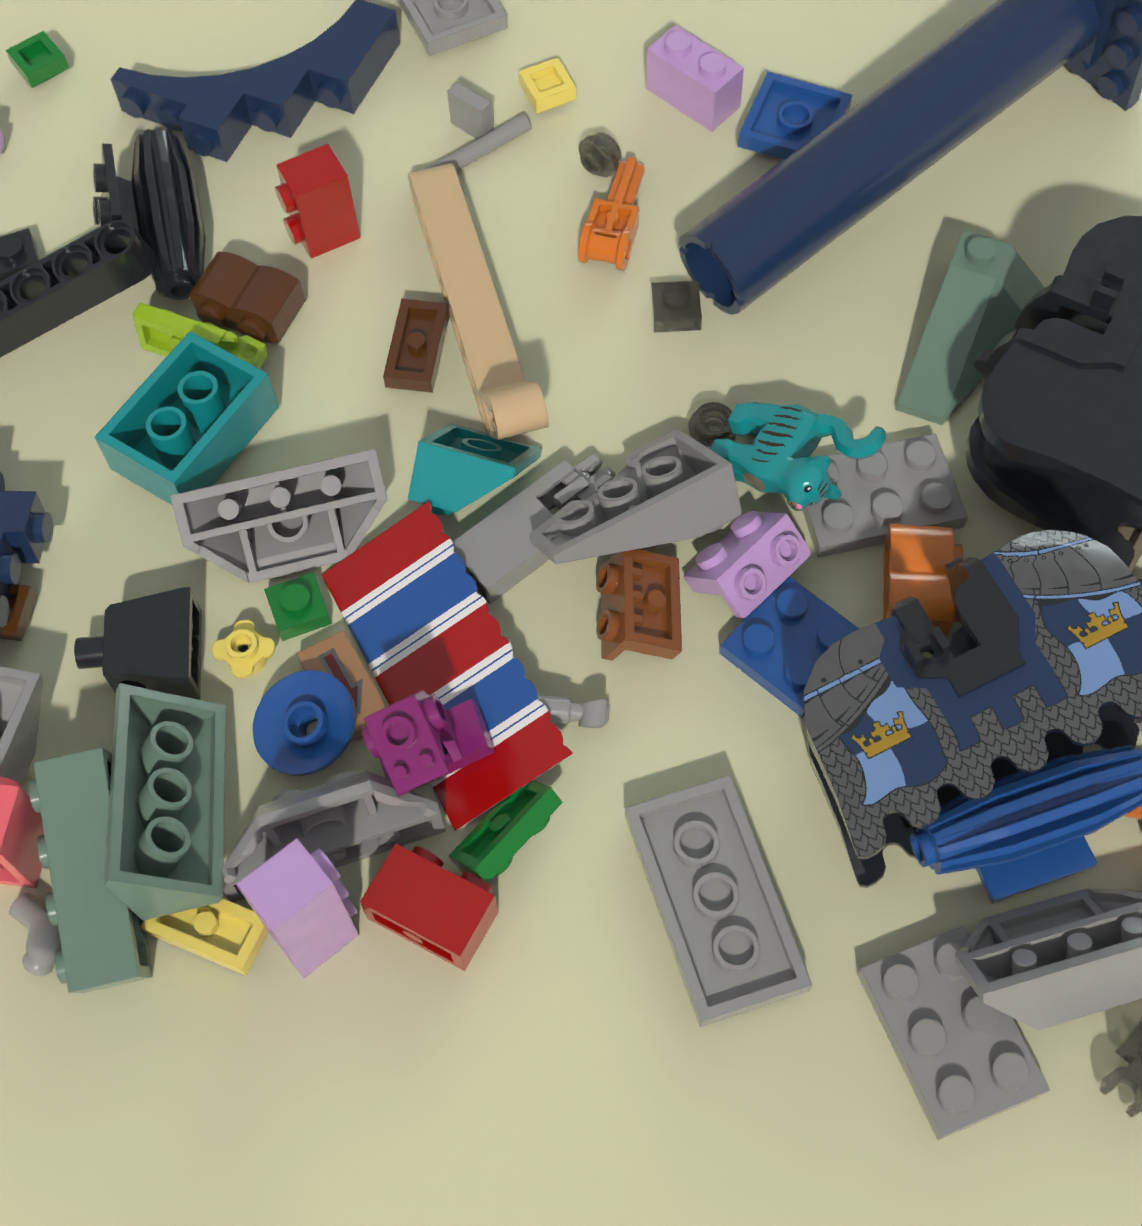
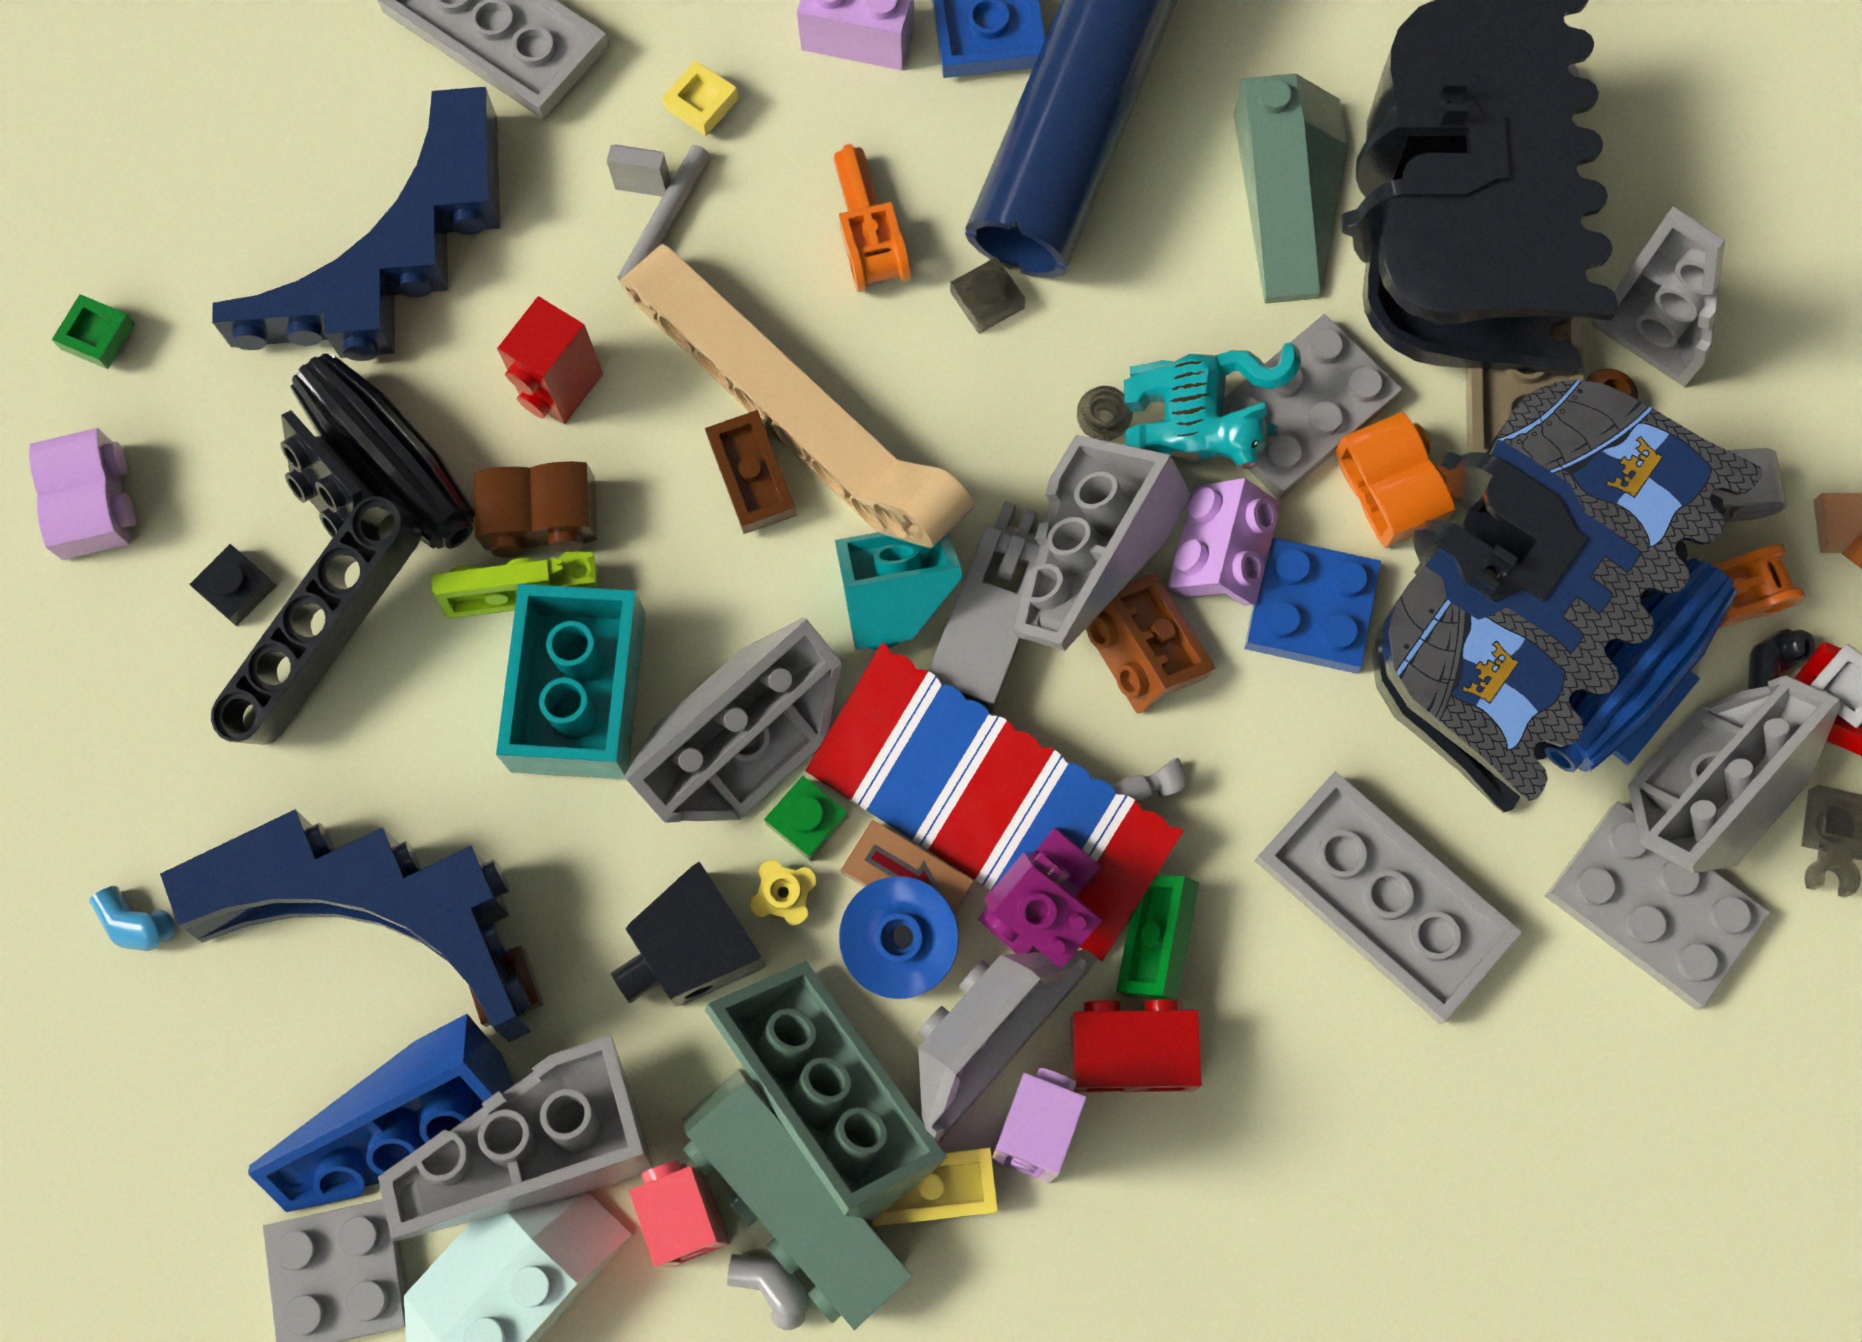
camera: 30 degrees left, 10 degrees up
(600, 154) = (809, 157): clear smoke plate -> none

